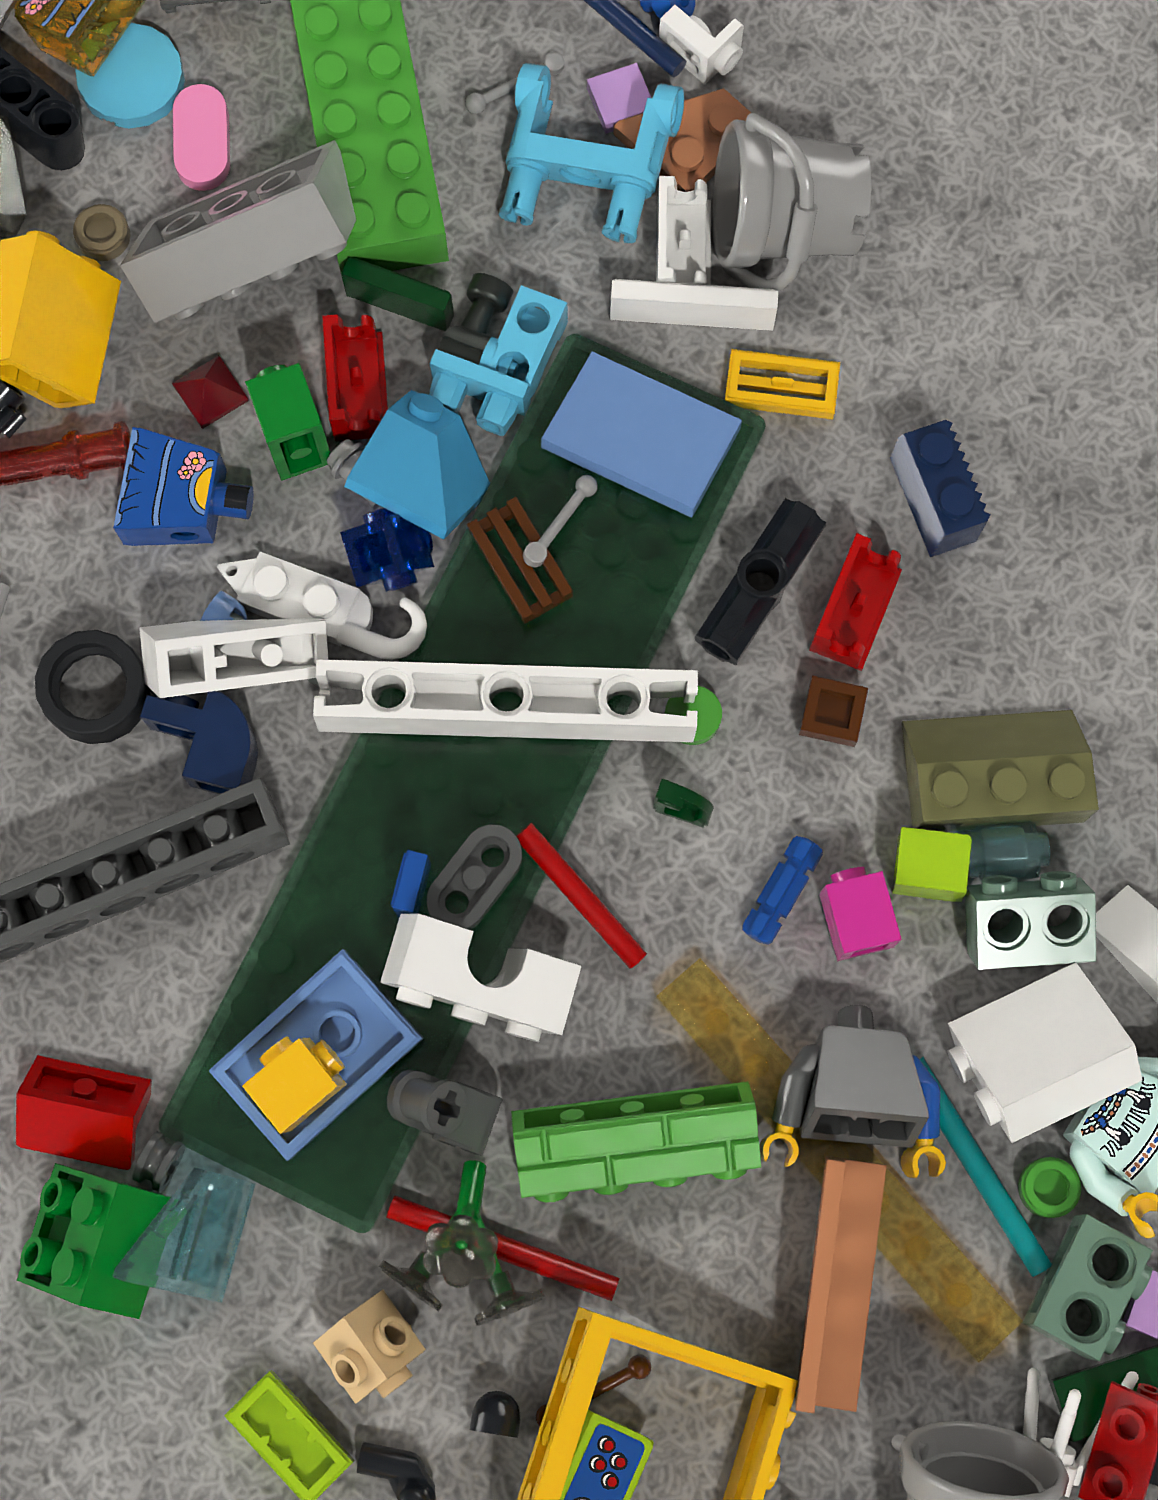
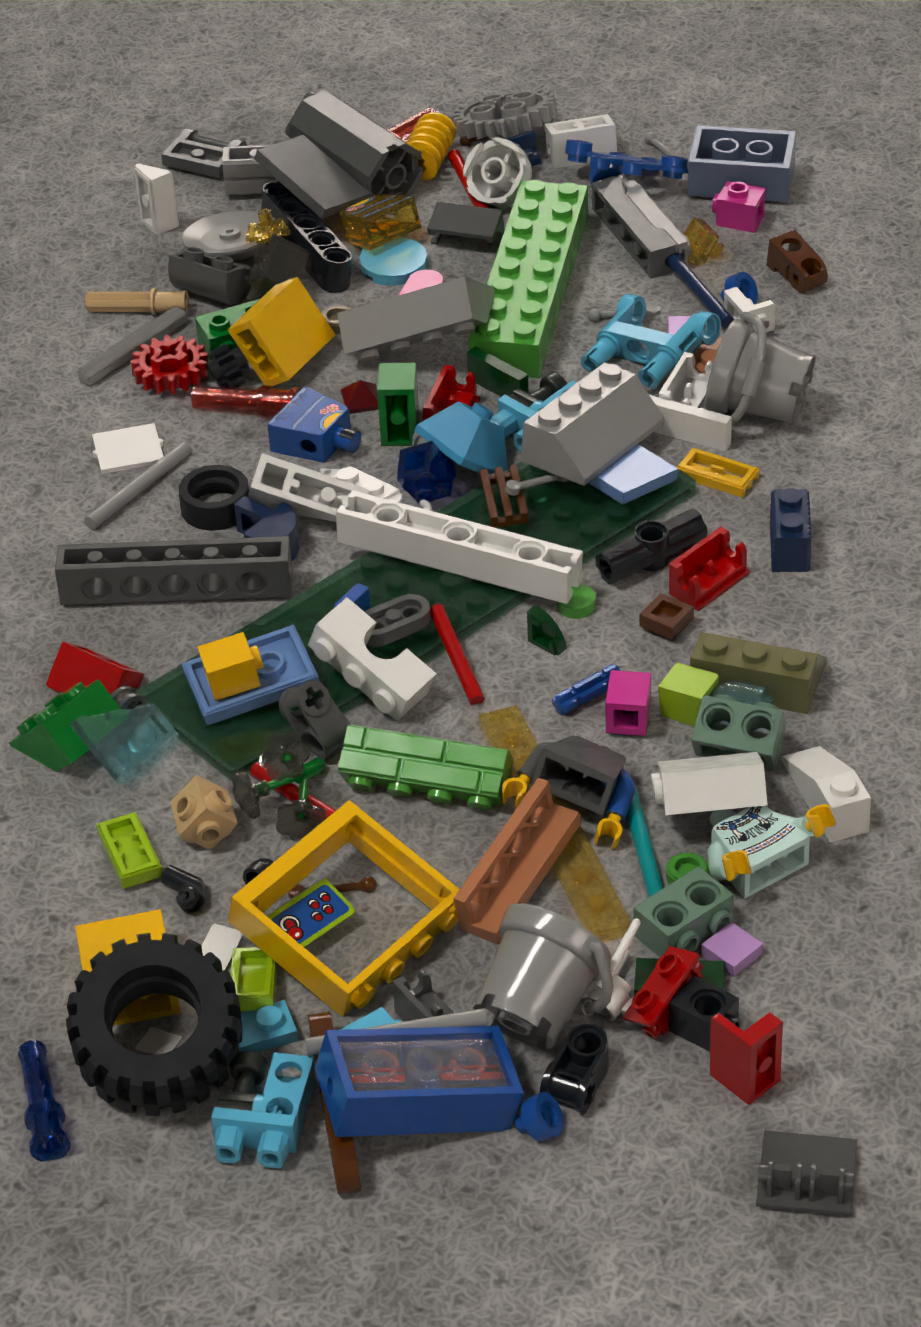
camera: 25 degrees right, 35 degrees down
(599, 392) = (590, 425): none -> light grey slope

